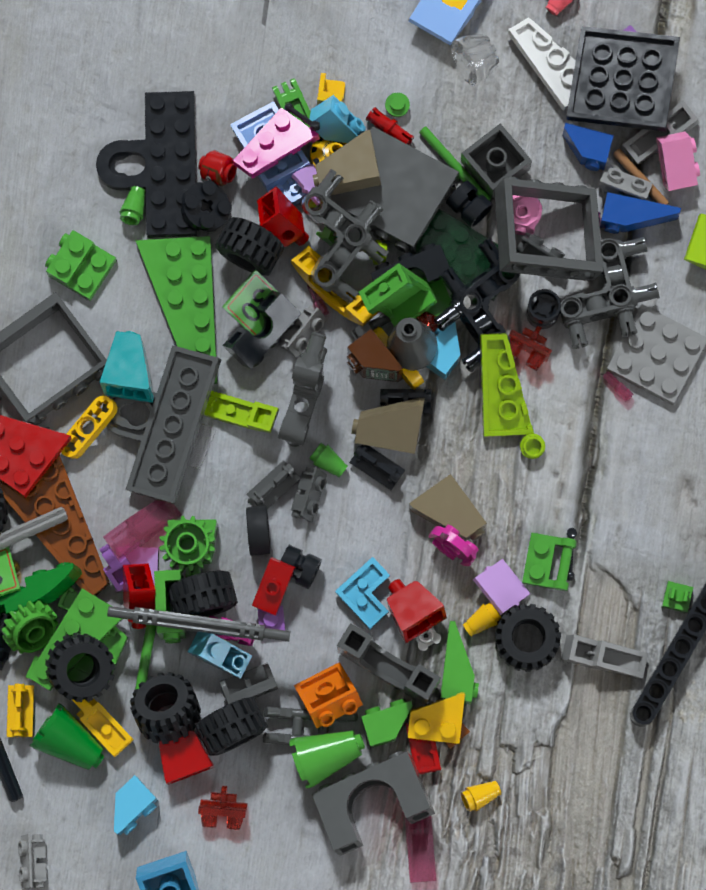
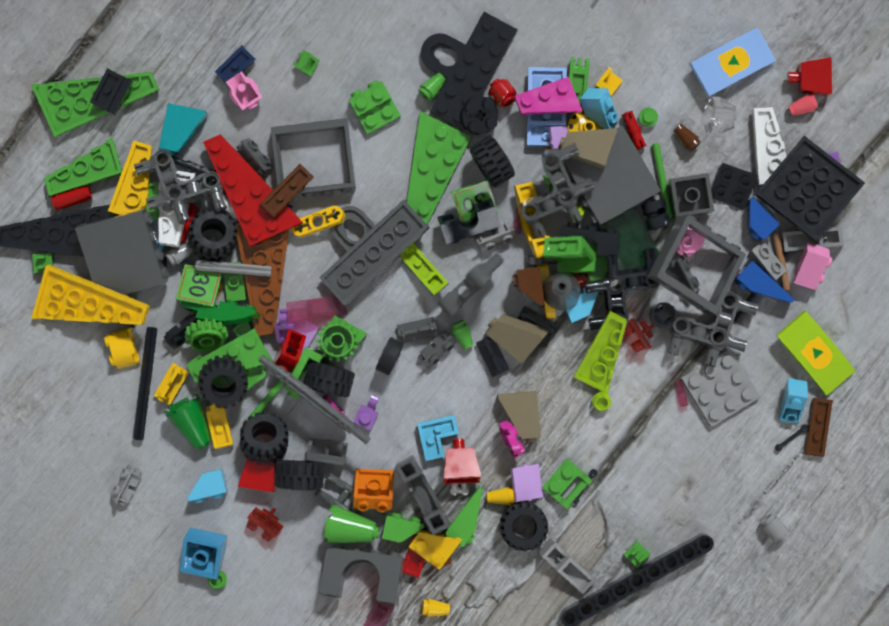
camera: 30 degrees right, 10 degrees up
(32, 410) = (286, 191): none -> reddish brown tile
(32, 555) = (235, 286): none -> bright green plate
(127, 369) = (365, 197): teal slope -> none
(220, 653) = (319, 423): medium azure slope -> none
(273, 586) = (378, 399): red plate -> none
(281, 218) = (524, 153): red torso -> none
(309, 563) = (402, 394): black wheel -> none
(314, 125) = (583, 103): black hinge -> none
(455, 103) = (687, 138): none -> reddish brown cone
(537, 124) = (733, 185): none -> black hinge

